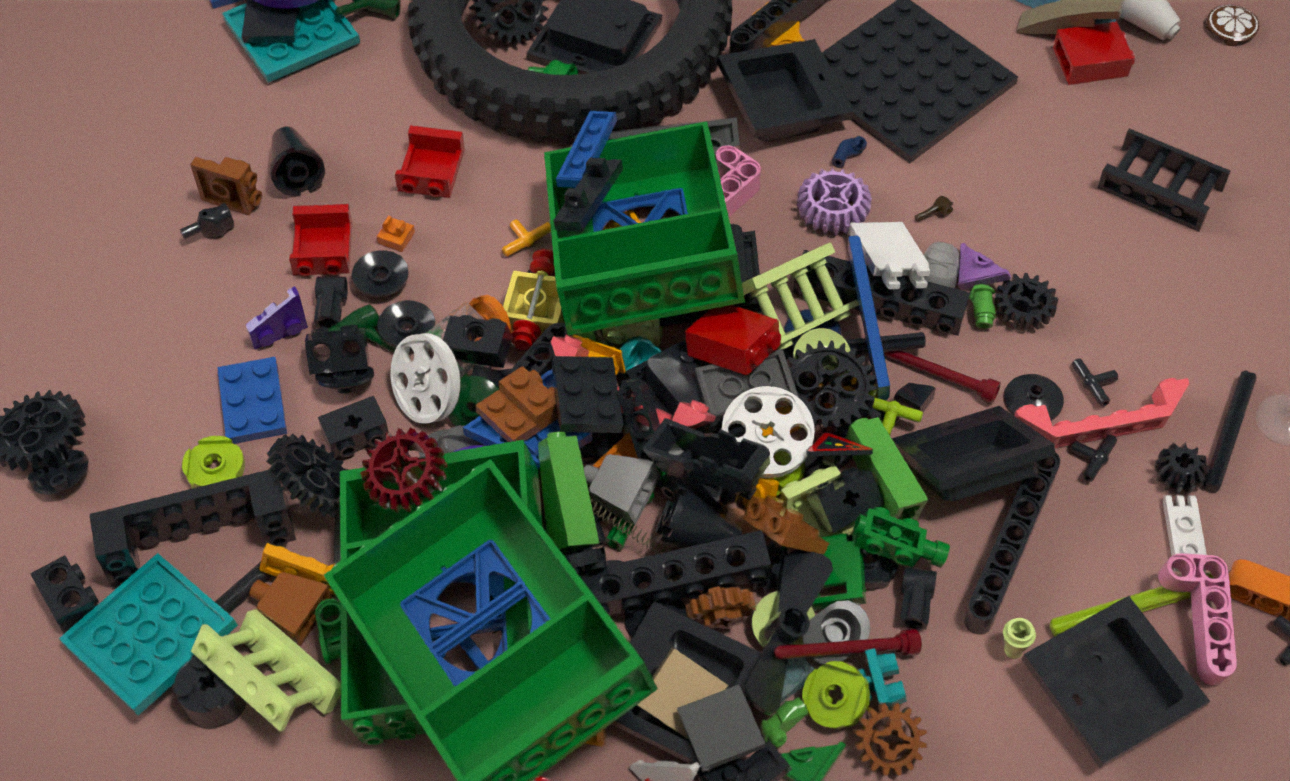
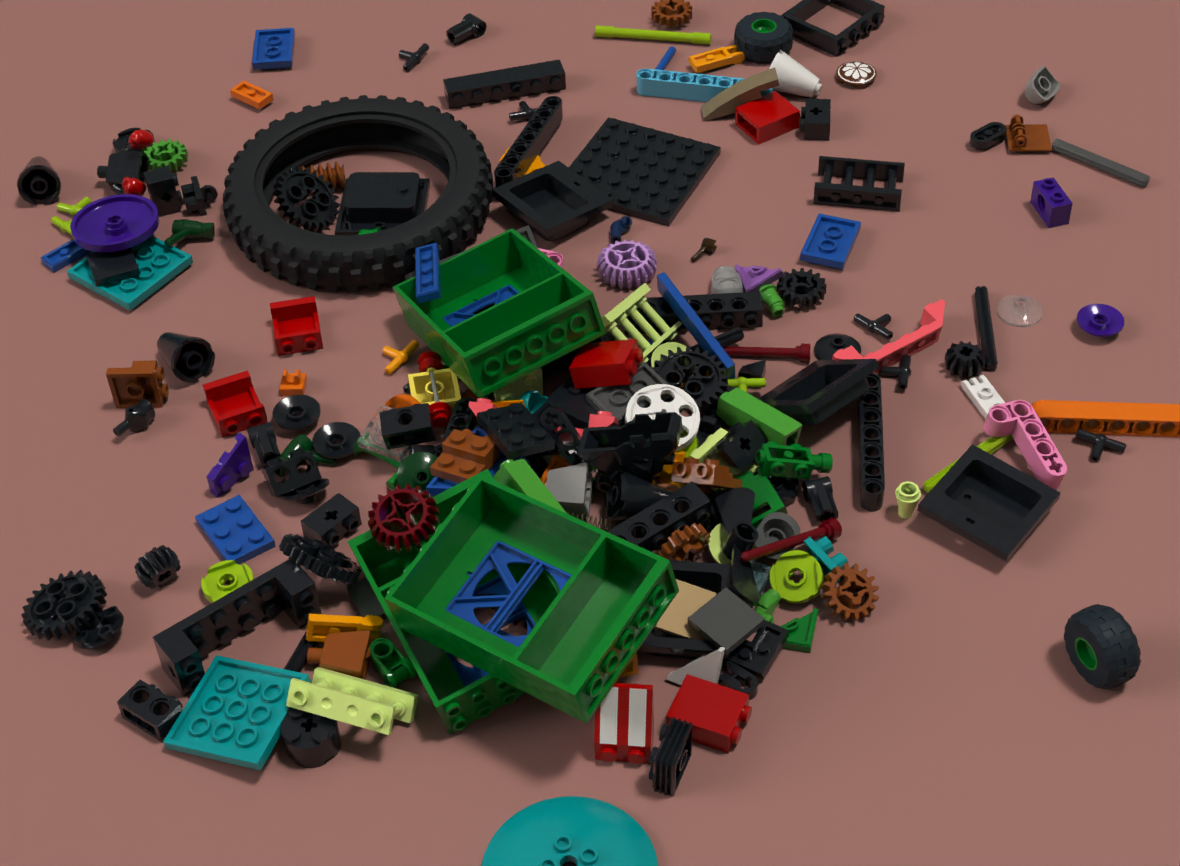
camera: 20 degrees left, 10 degrees down
(146, 419) = (157, 567): none -> black gear
(433, 381) = (366, 468): white wedge -> none
(588, 195) = (449, 297): black hinge -> none
(833, 446) = (716, 414): black piece -> none
(891, 253) = (692, 282): white tile -> none
(1092, 247) = (830, 241): none -> blue plate
(1152, 73) = (816, 119): none -> black brick

